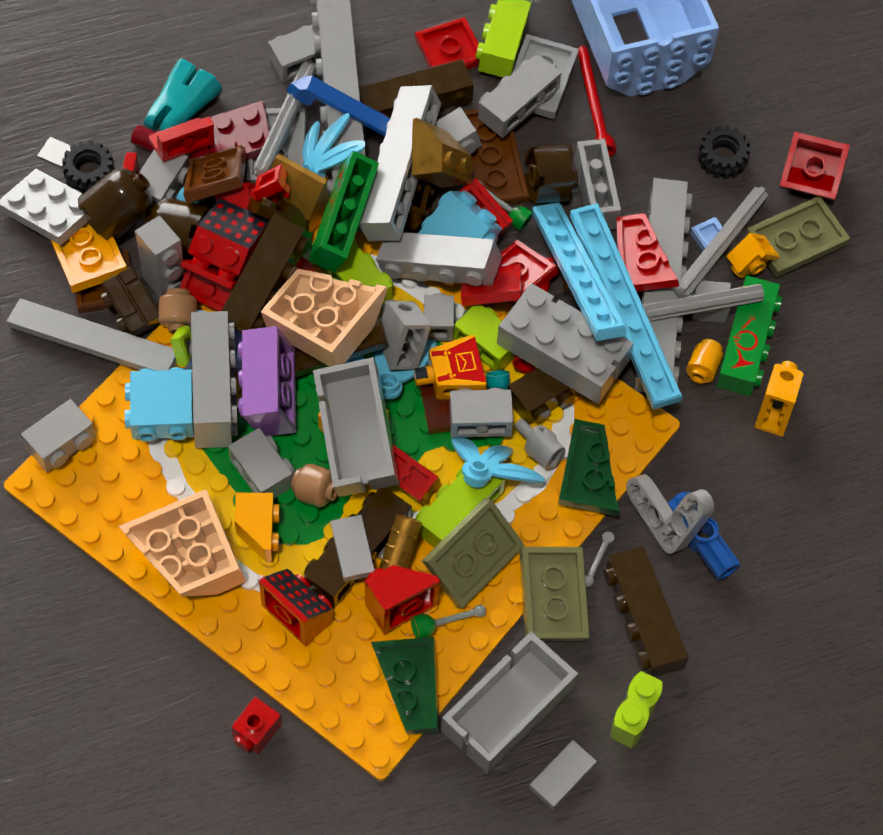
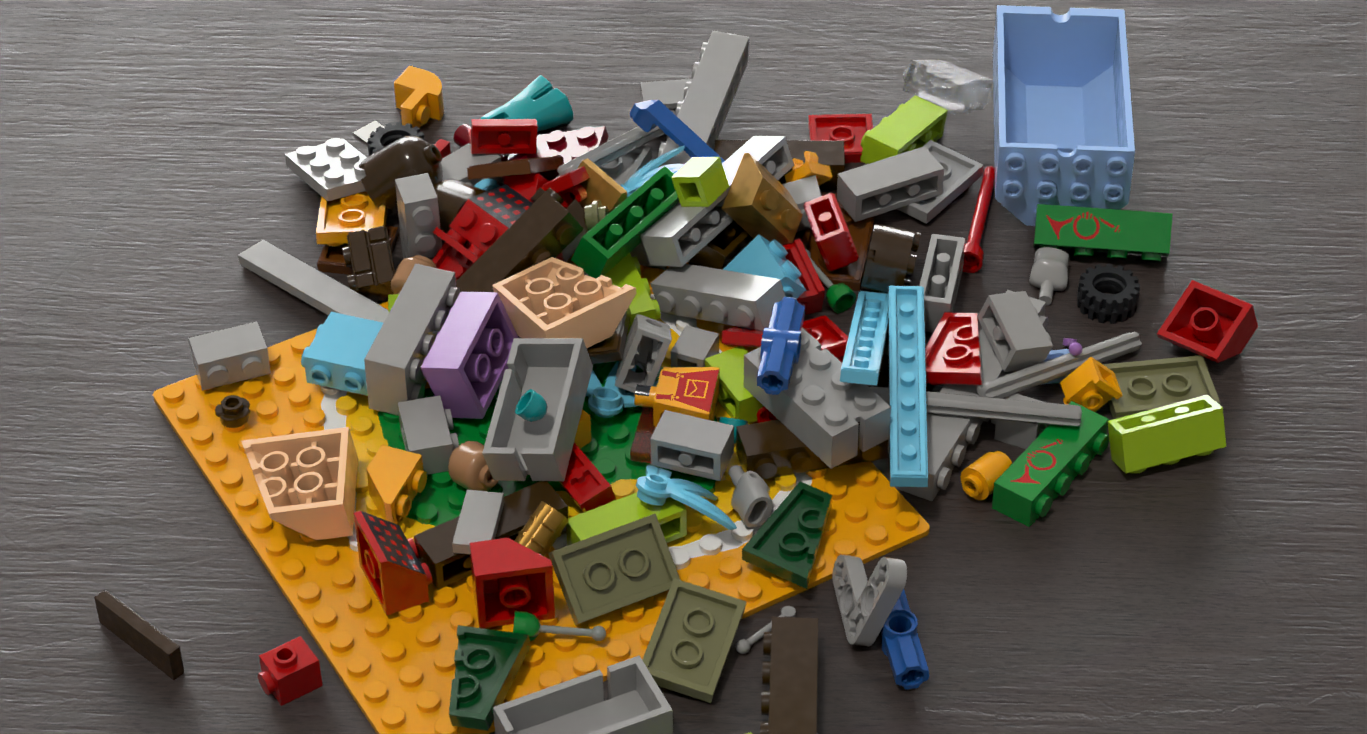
camera: 25 degrees right, 20 degrees down
(81, 101) = (418, 96): none -> light orange brick
(90, 494) = (233, 411): none -> dark brown plate
(117, 732) = (139, 634): none -> dark brown tile
(311, 211) = (595, 213): none -> olive plate
(354, 431) = (531, 406): none -> teal hinge
(390, 159) = (700, 181): none -> lime brick
(451, 102) = (809, 168): none -> light orange tile
(495, 160) = (831, 232): none -> red brick
(532, 315) = (780, 346): none -> blue piece
(670, 144) = (1049, 272): none -> light grey piece
(683, 224) = (1014, 330): none -> light grey brick
(699, 93) = (1103, 231): none -> green brick
(729, 223) = (1074, 347): none -> medium lavender hinge
(782, 387) = (1055, 527): light orange torso -> none
(825, 283) = (1167, 434): none -> lime brick

